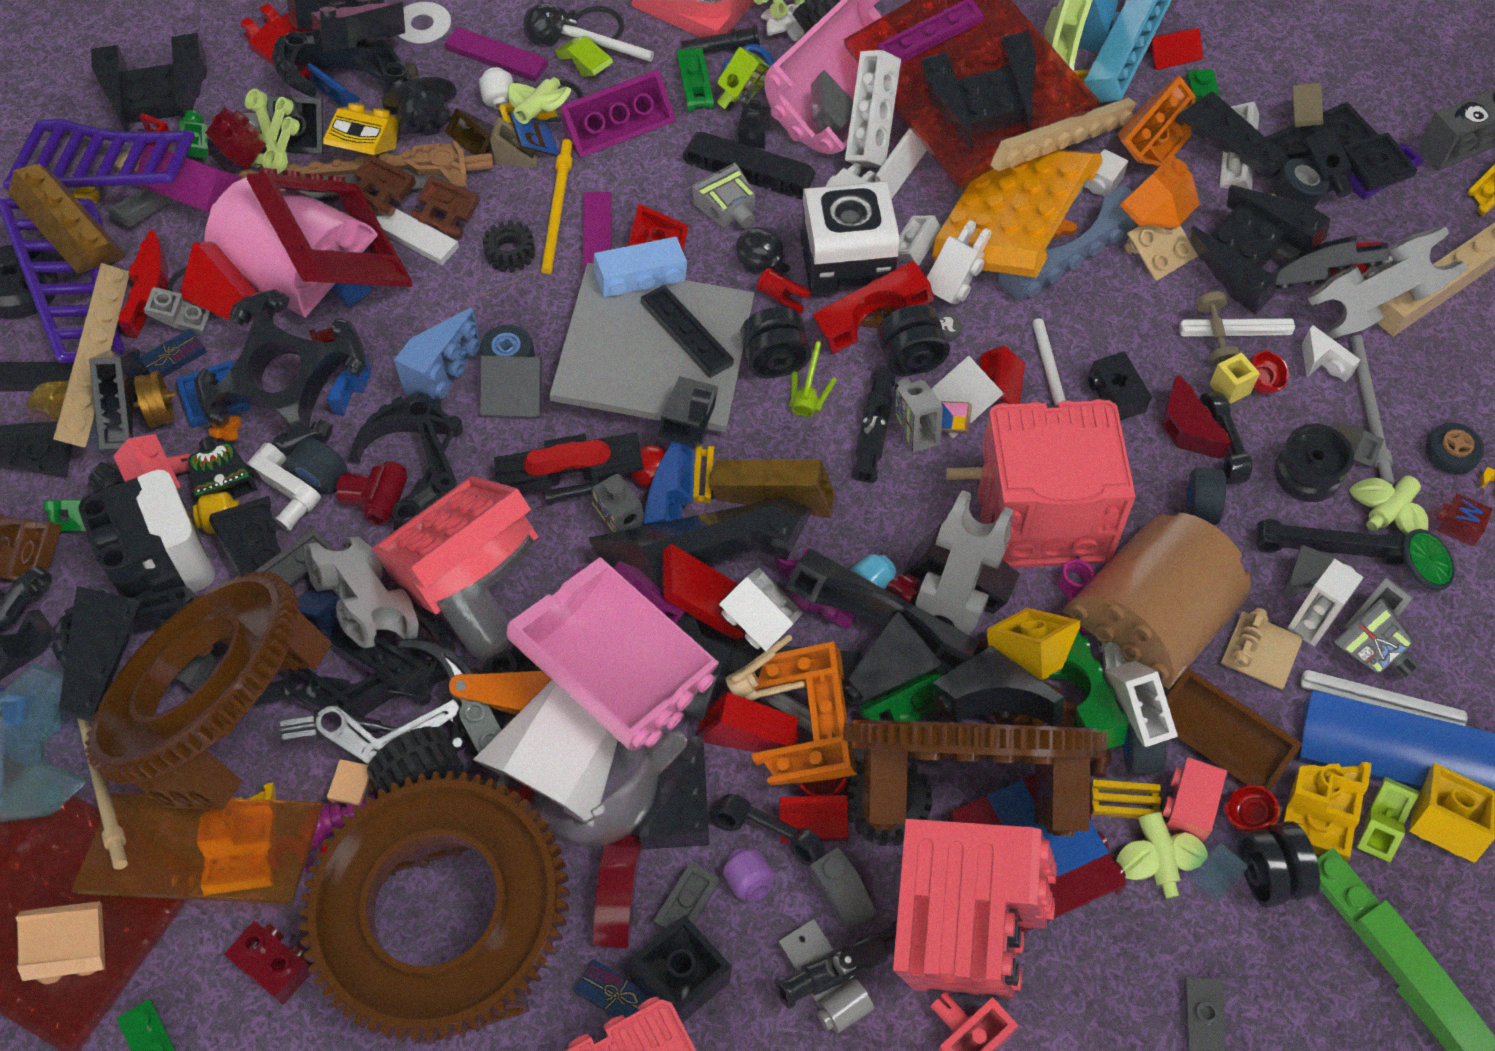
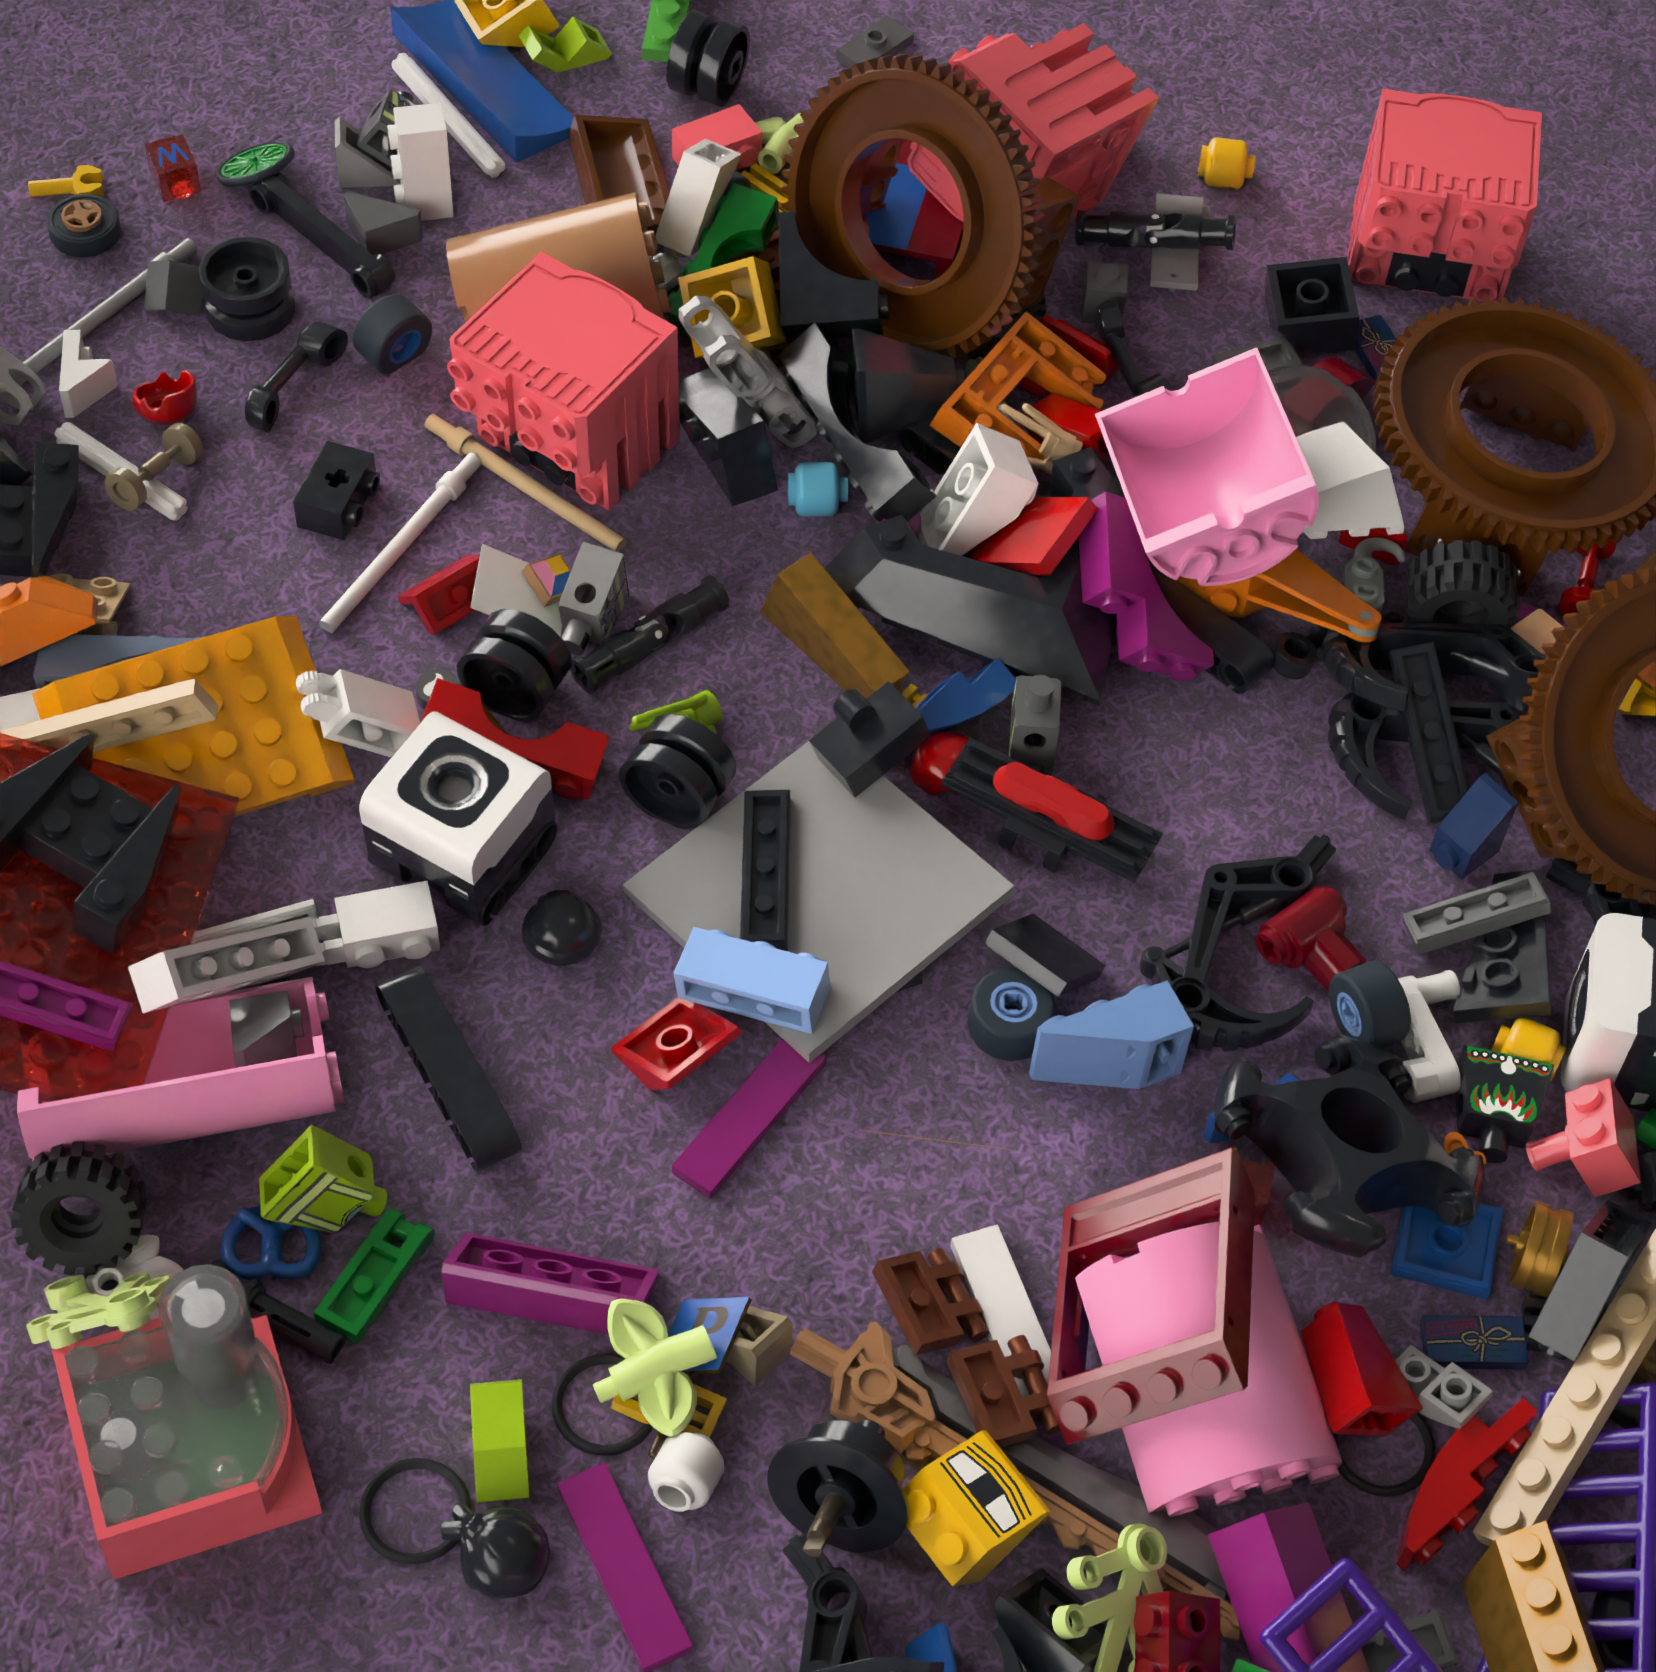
camera: 145 degrees left, 5 degrees down
(363, 598) = (1411, 833): light grey piece -> none
(459, 551) = (1273, 744): coral piece -> none
(470, 132) = (778, 1410): dark brown slope -> none
(511, 258) = (886, 1201): black tyre -> none
(563, 166) = (697, 1265): yellow bar -> none
(609, 43) = (434, 1434): white bar -> none
(726, 197) = (526, 1035): light grey torso -> none
(748, 874) = (1181, 343): medium lavender head -> none
(754, 125) = (380, 1117): black brick -> none
(780, 288) = (590, 868): red hinge -> none
(904, 587) = (800, 447): dark red gear -> none
(917, 238) = (331, 827): white slope -> none
(1191, 423) = (306, 415): dark red slope -> none
(1219, 872) = (758, 102): clear light blue panel -> none
(1235, 377) = (213, 406): light yellow brick -> none
(1252, 808) = (675, 106): red hair -> none
(1262, 649) = (501, 203): tan hinge -> none
(1328, 804) = (606, 83): yellow slope -> none
(1391, 503) = (216, 220): yellowish green plant -> none

